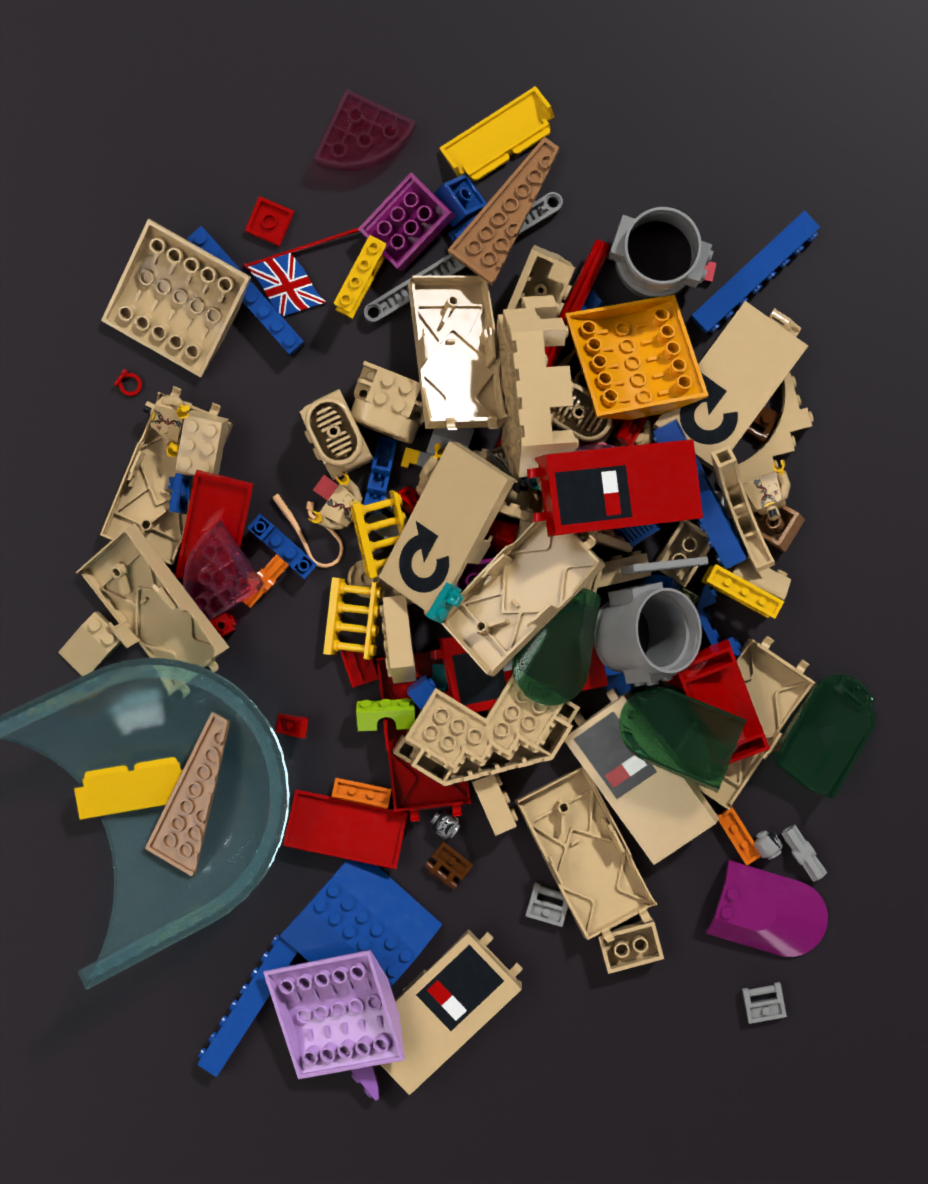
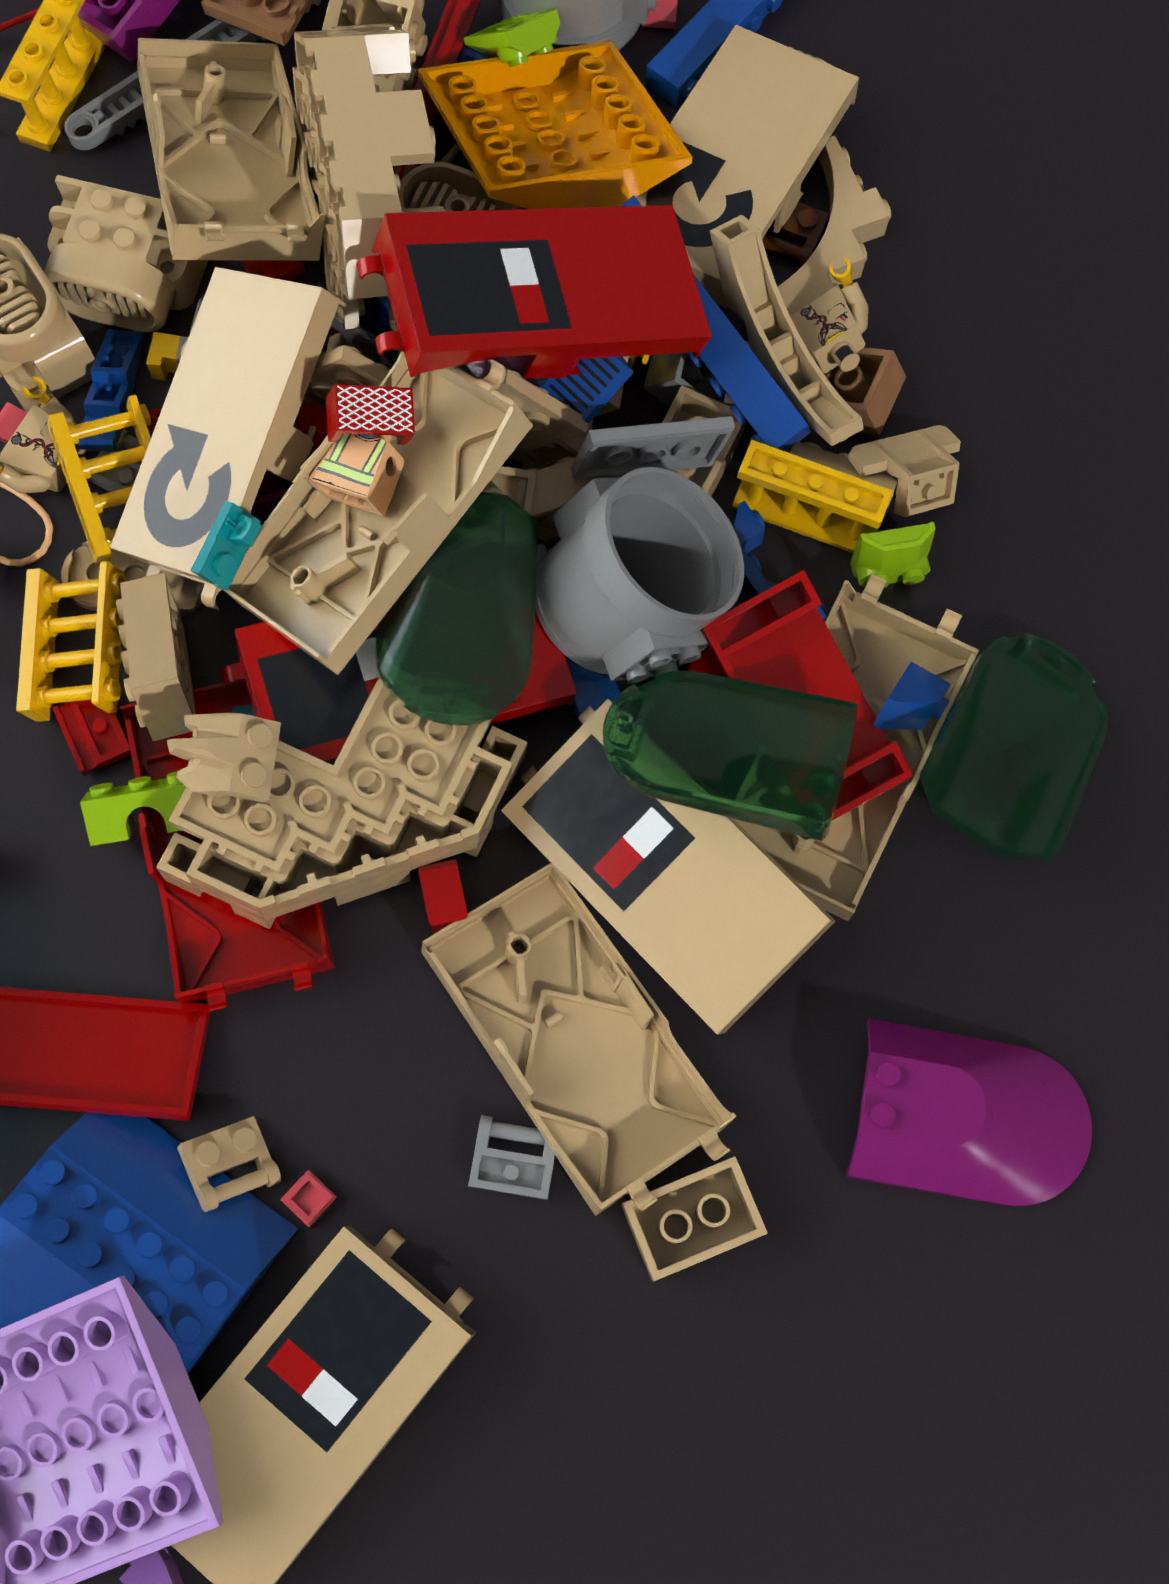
camera: 10 degrees left, 15 degrees down
(361, 793) = (110, 976): orange plate -> none
(412, 885) = (224, 1151): none -> tan plate
(436, 711) = (228, 755): none -> tan plate
(445, 824) = (285, 1018): head -> none
(448, 911) = (309, 1198): none -> coral tile
(453, 861) = (307, 1091): reddish brown plate -> none
(495, 803) = (380, 953): tan brick -> none
(516, 571) = (360, 472): none -> light nougat torso
(524, 548) = (370, 411): none -> red panel
(530, 779) = (443, 894): none -> red slope
(621, 296) = (517, 37): none -> lime slope
(738, 835) = (881, 968): orange plate -> none
(764, 1009) = (998, 1323): light grey plate -> none
(768, 844) = (943, 976): light grey head -> none
(777, 705) = (914, 700): none -> blue slope
(785, 625) = (894, 555): none -> lime slope
(799, 574) = (921, 464): none -> tan plate
(804, 853) = (1017, 987): light grey piece -> none

